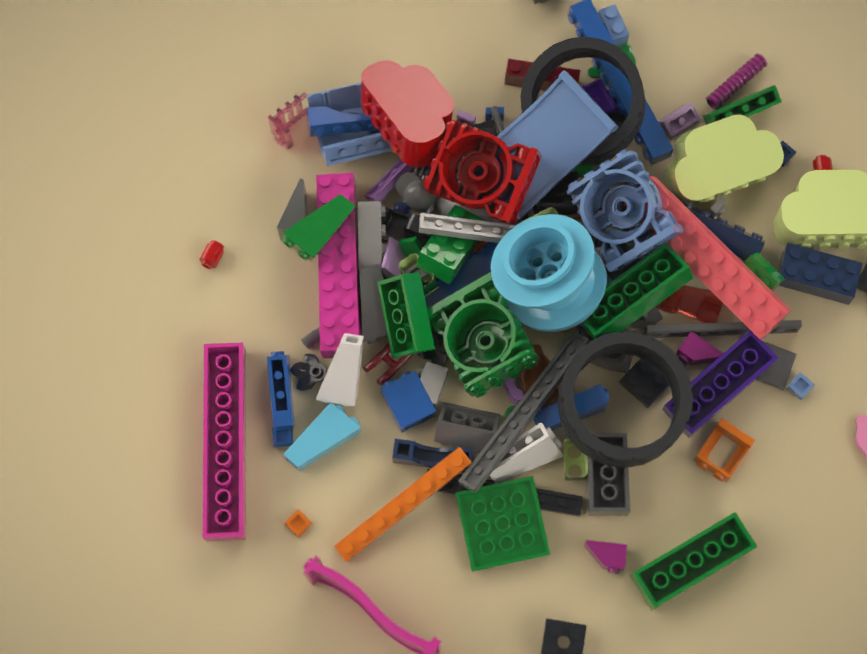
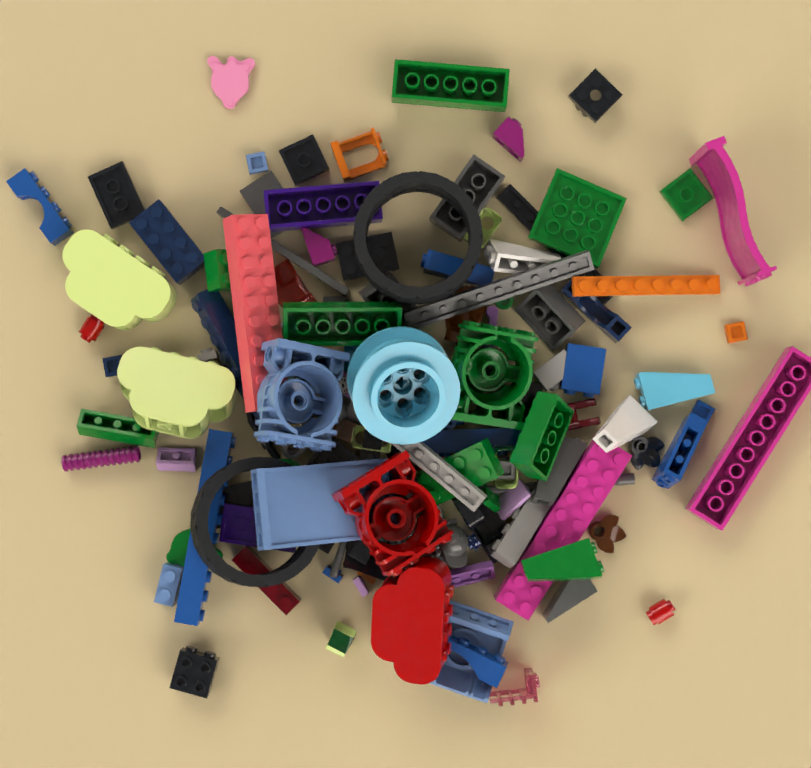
camera: 150 degrees left, 15 degrees up
(295, 289) = (609, 533): none -> reddish brown plate
(422, 613) = (686, 194): none -> green tile
(457, 76) = (341, 639): none -> piece
(765, 415) = (304, 160): none -> black plate

